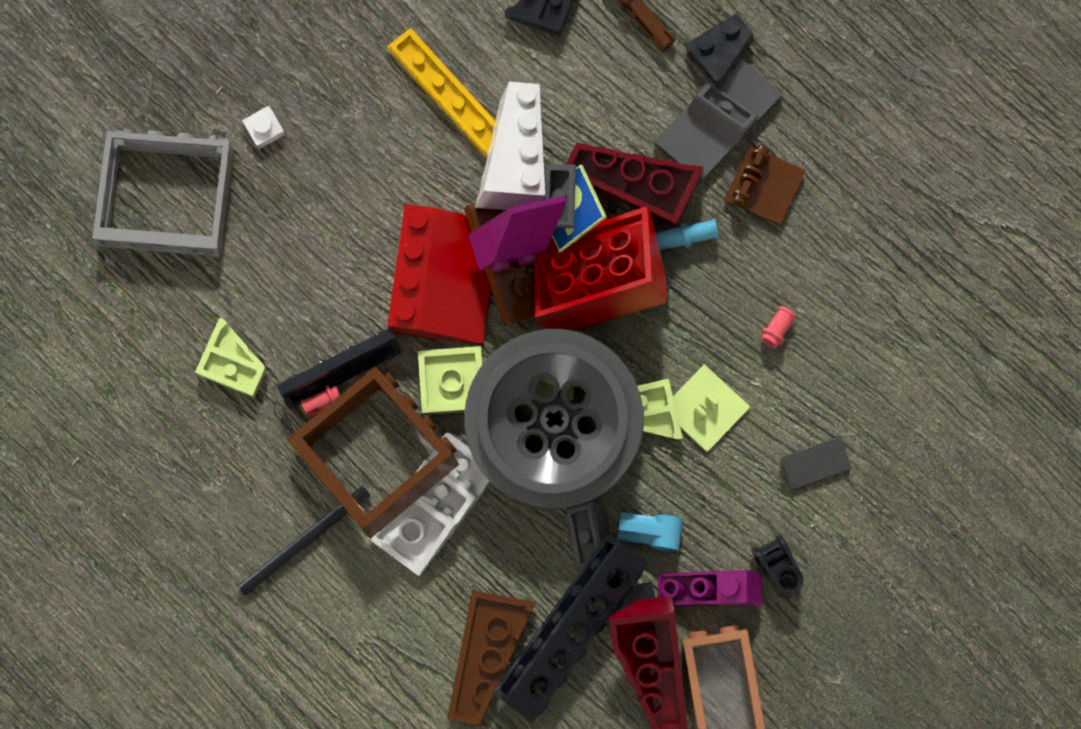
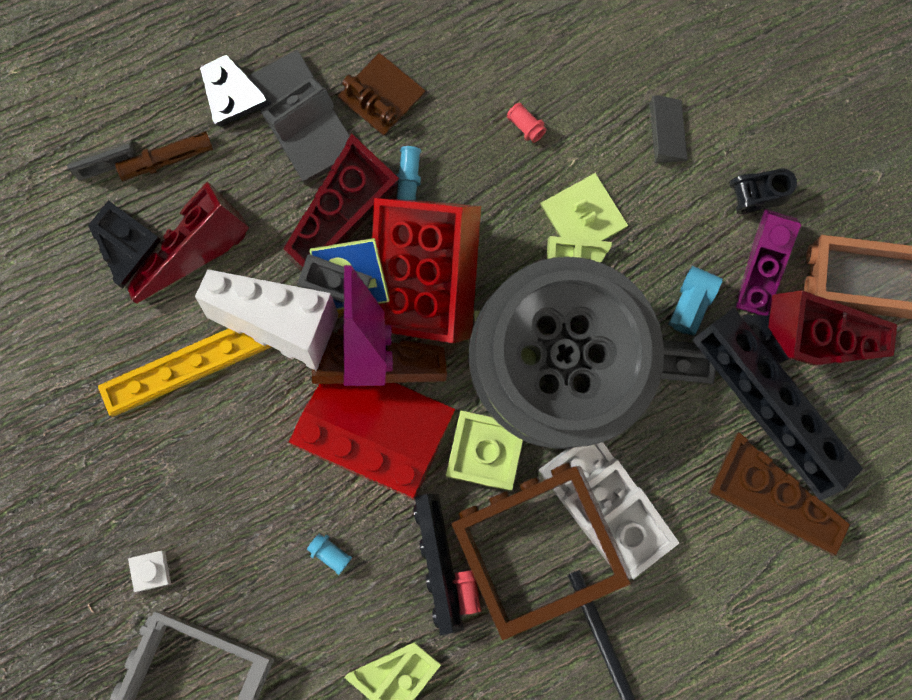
camera: 75 degrees left, 0 degrees up
(321, 272) = (329, 553): none -> medium azure pin
(571, 69) = (203, 234): none -> dark red wedge

